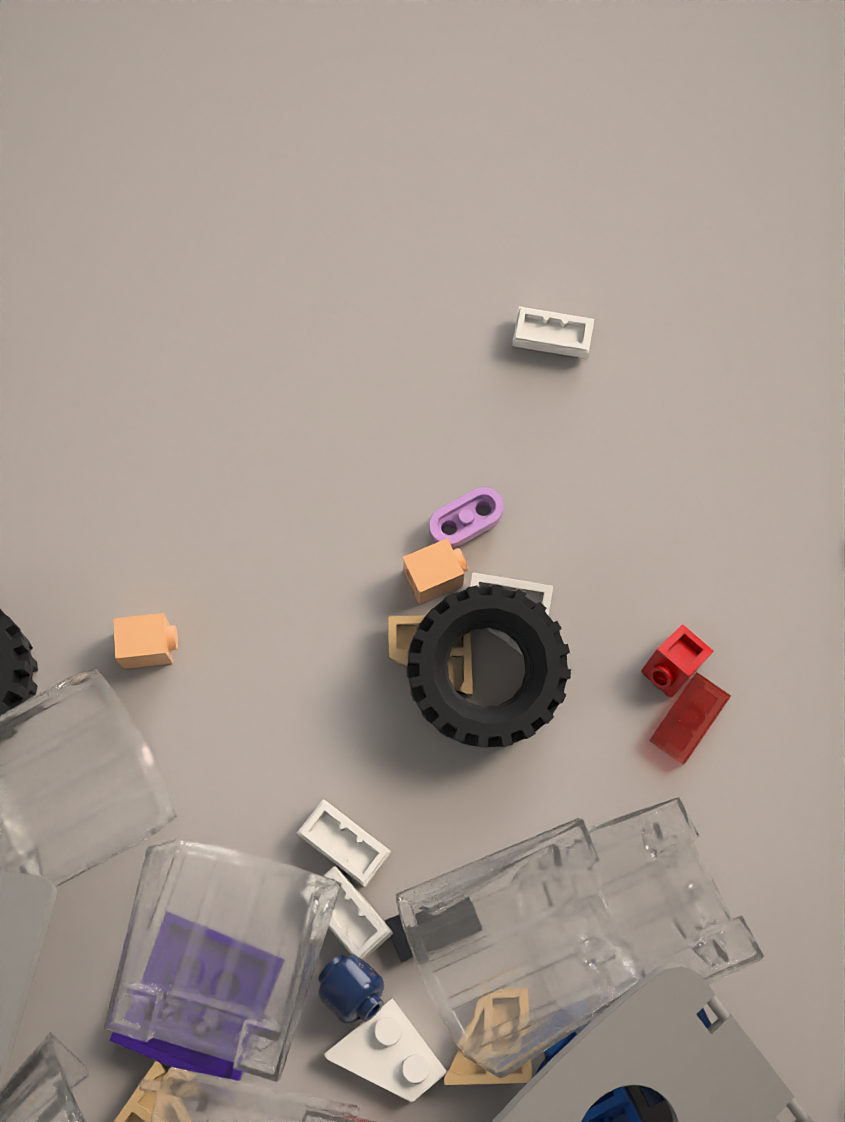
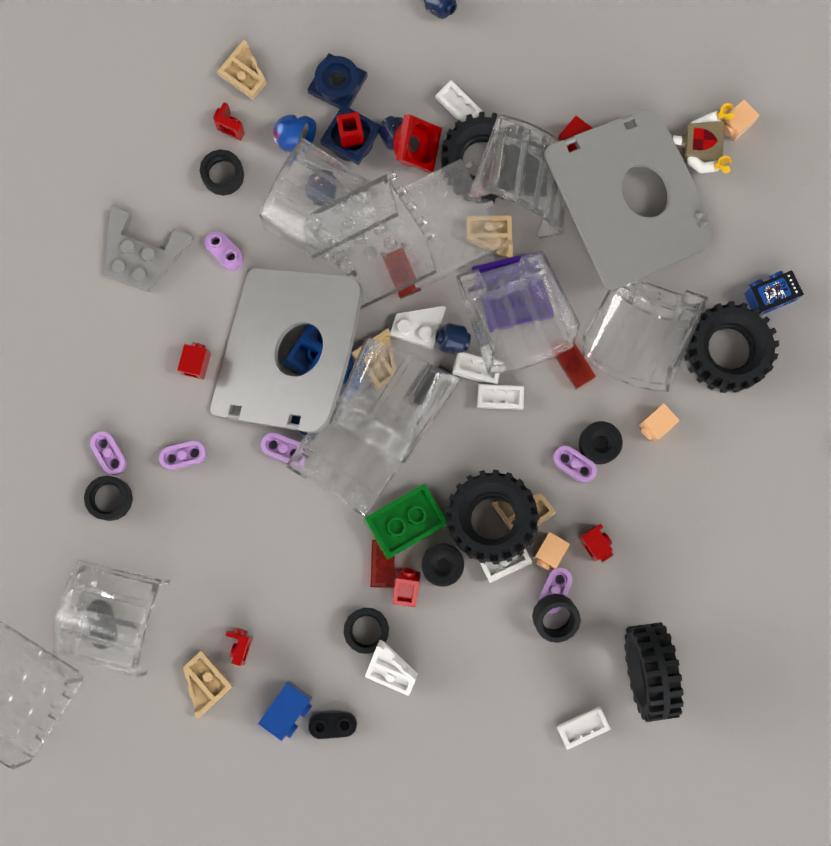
camera: 145 degrees right, 10 degrees up
(197, 806) = (575, 367): none -> clear red plate
(242, 649) = (604, 430): none -> black tyre
(309, 668) = (574, 464): none -> lavender plate
(361, 539) = (597, 543): none -> red brick
(418, 318) = (653, 672): none -> black tyre
(491, 498) = (564, 632): none -> black tyre
(617, 637) = (429, 565): none -> black tyre
(618, 751) = (405, 521): none -> green plate
(745, 995) = (284, 447): none -> lavender plate
(773, 562) = (391, 670): none -> white wing
(791, 615) = (348, 629): none -> black tyre

